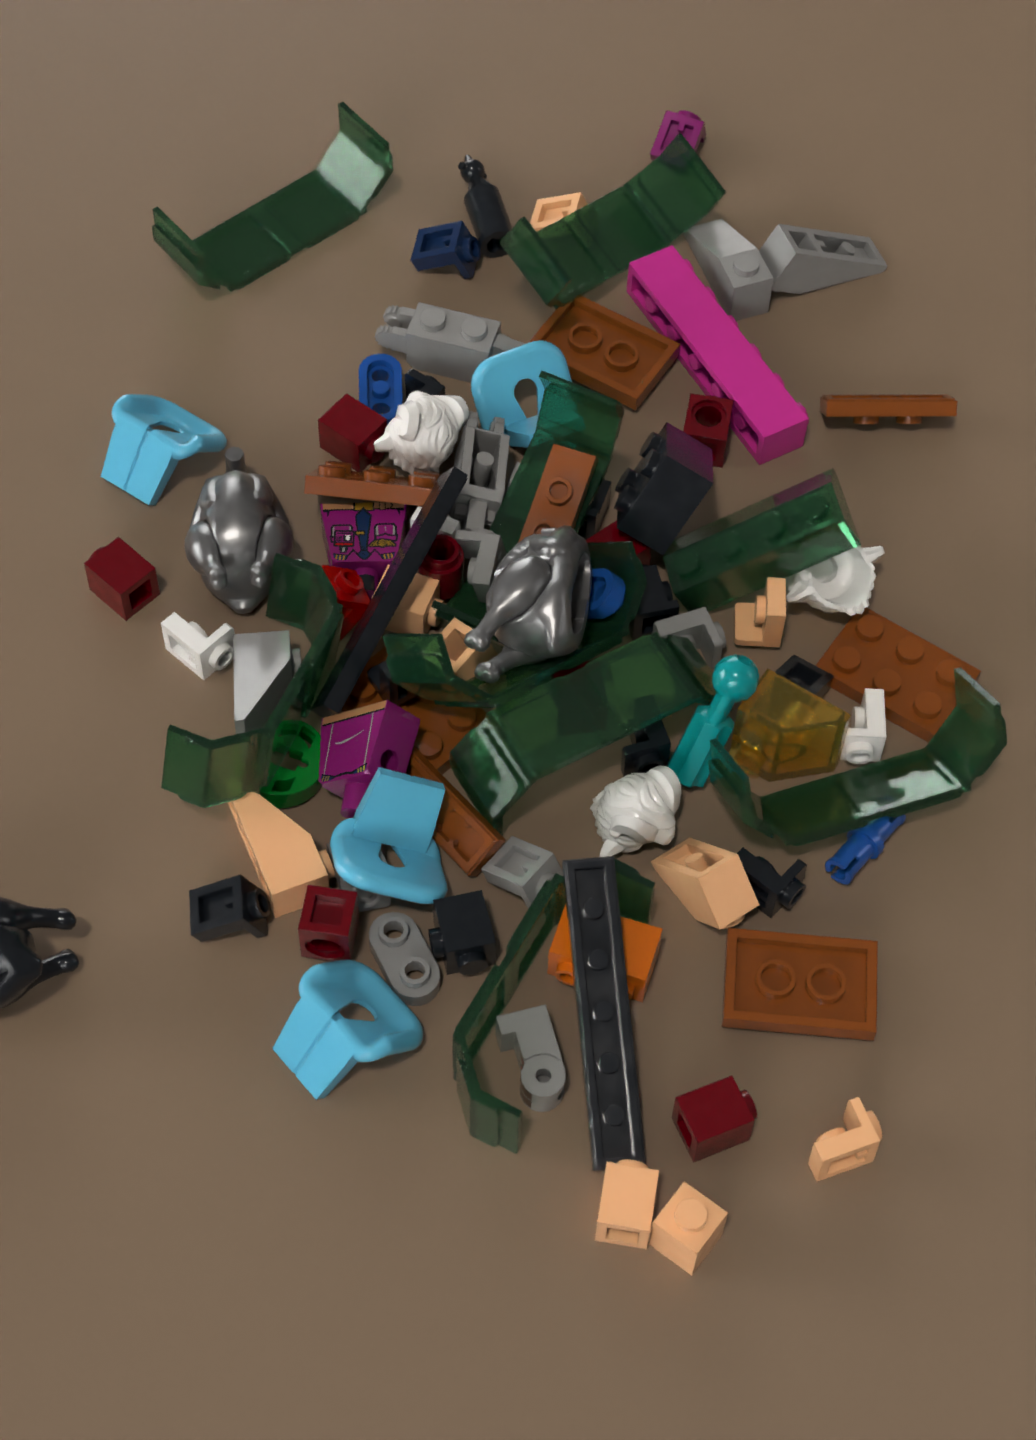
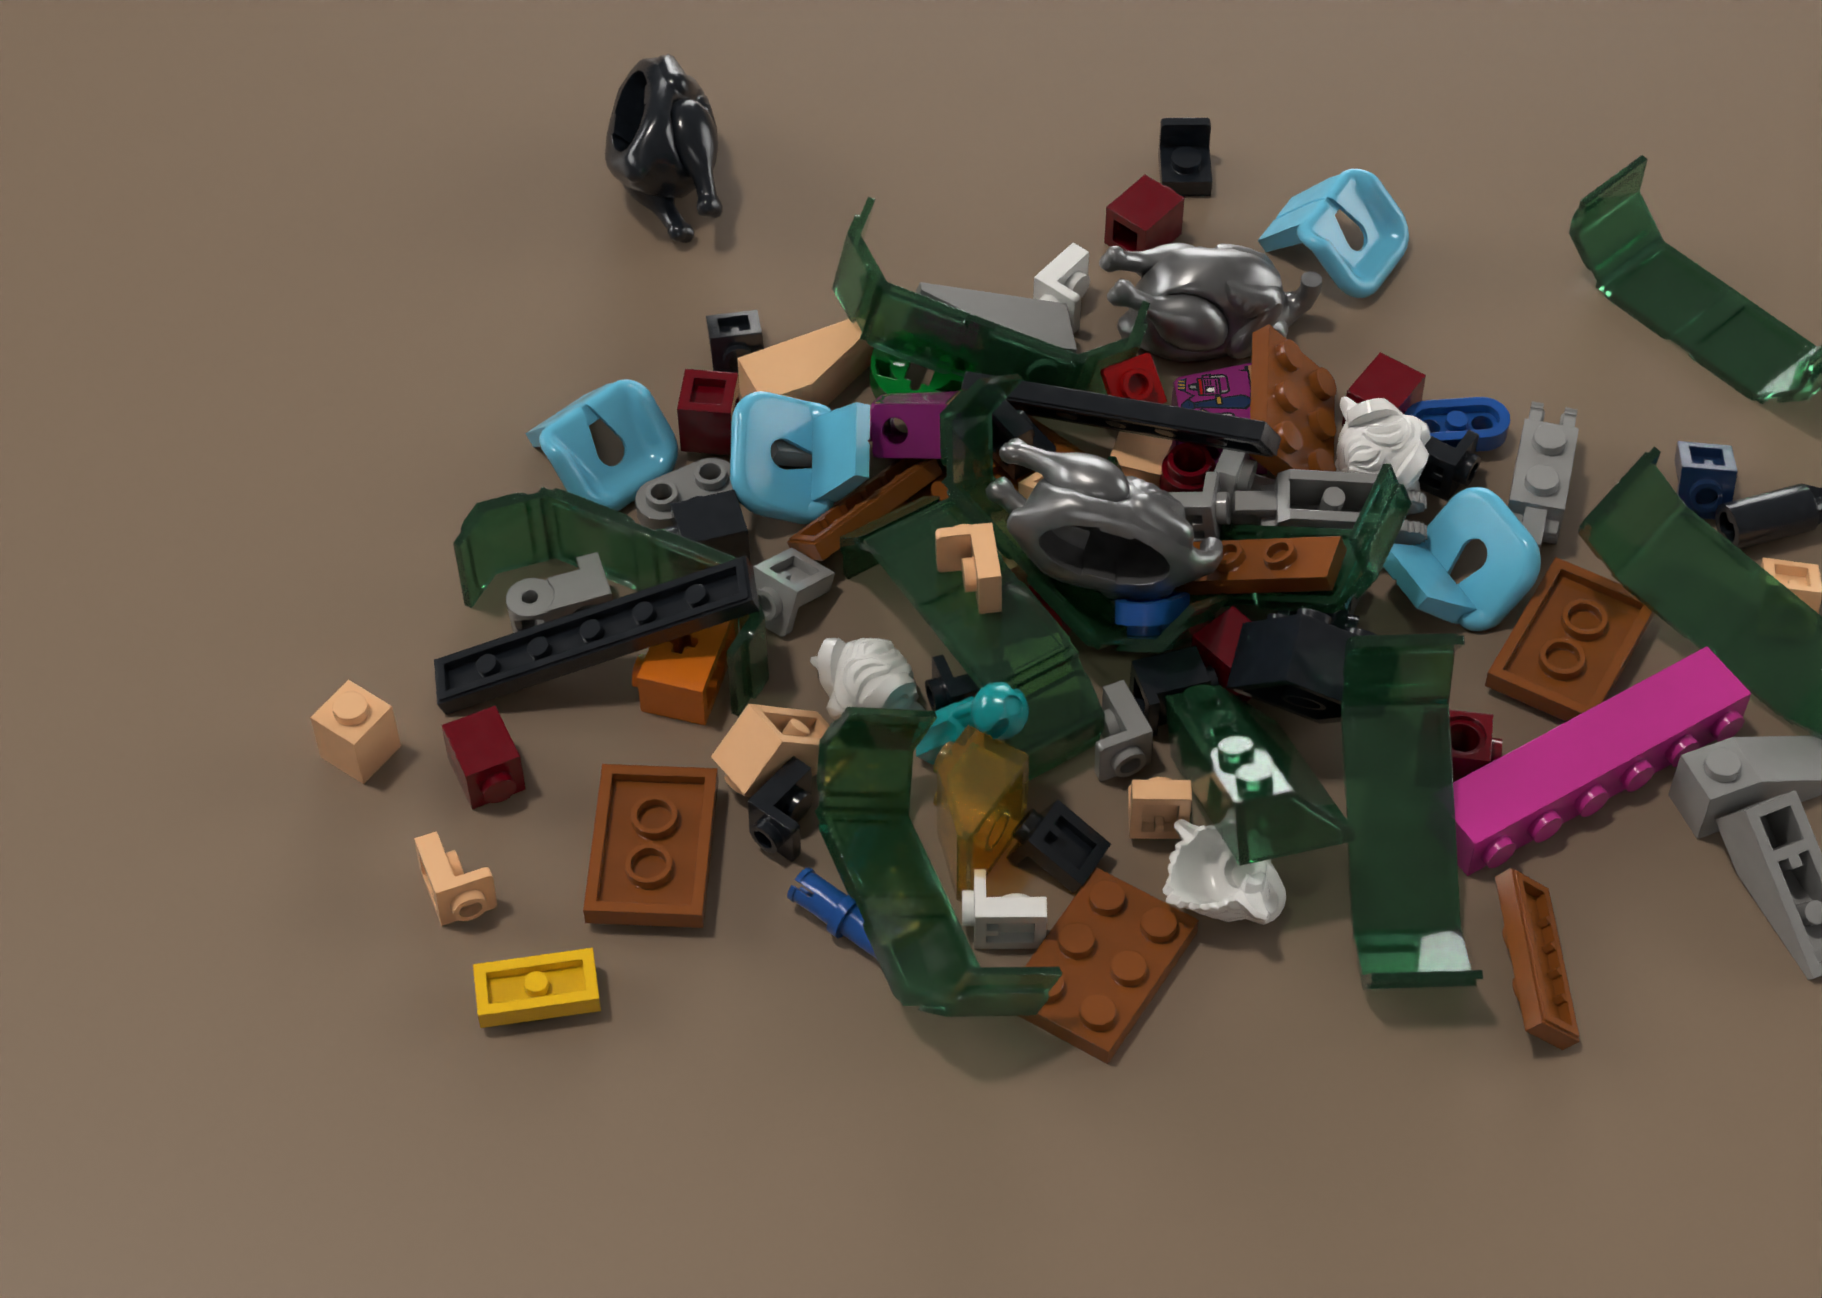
camera: 90 degrees right, 5 degrees down
(44, 547) = (1185, 155): none -> black bracket
(586, 678) = (975, 554): none -> light nougat bracket
(627, 1204) = (396, 676): light nougat brick -> none
(779, 456) = (1402, 812): none -> clear green windscreen
(947, 1073) = (536, 987): none -> yellow plate

